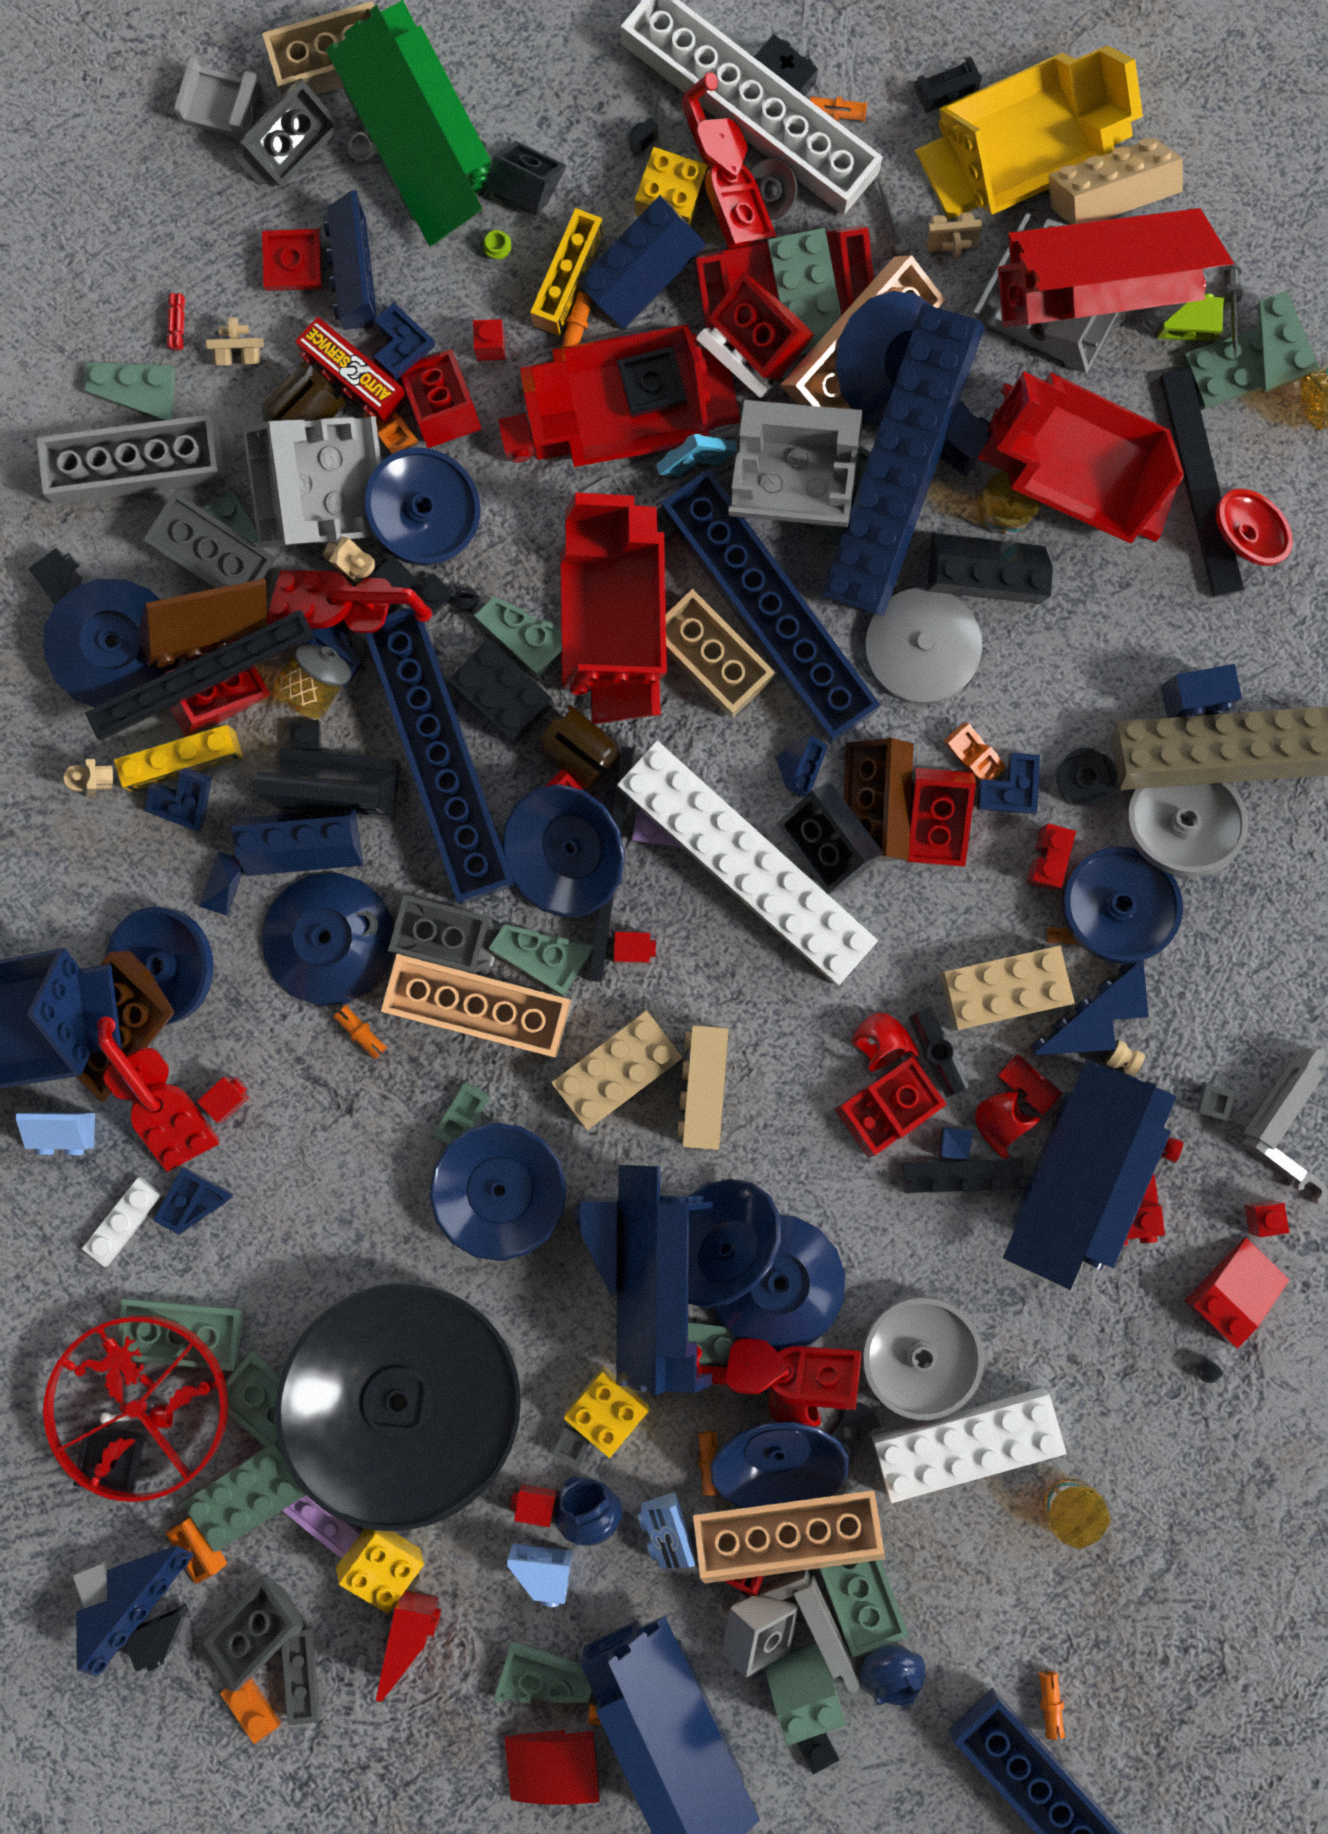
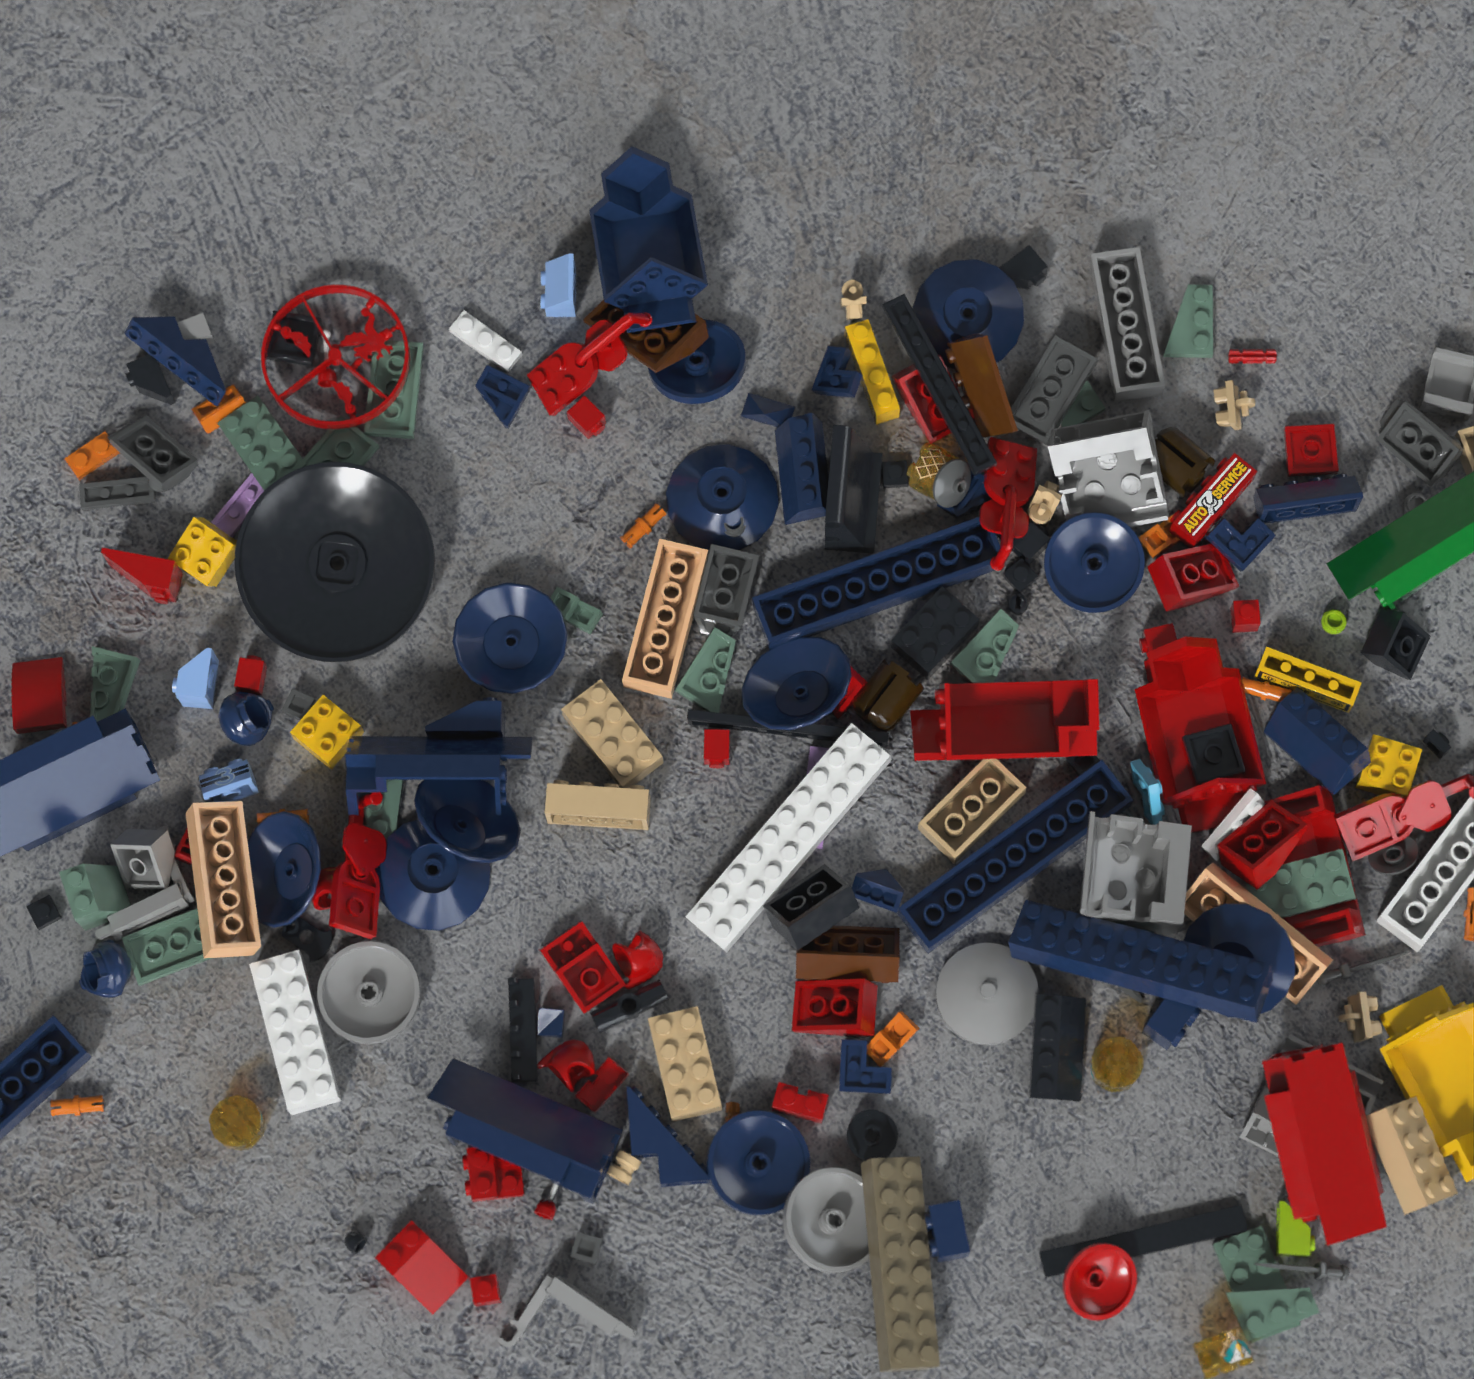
camera: 90 degrees right, 10 degrees down
(1084, 456) = (1152, 1126): red panel -> none

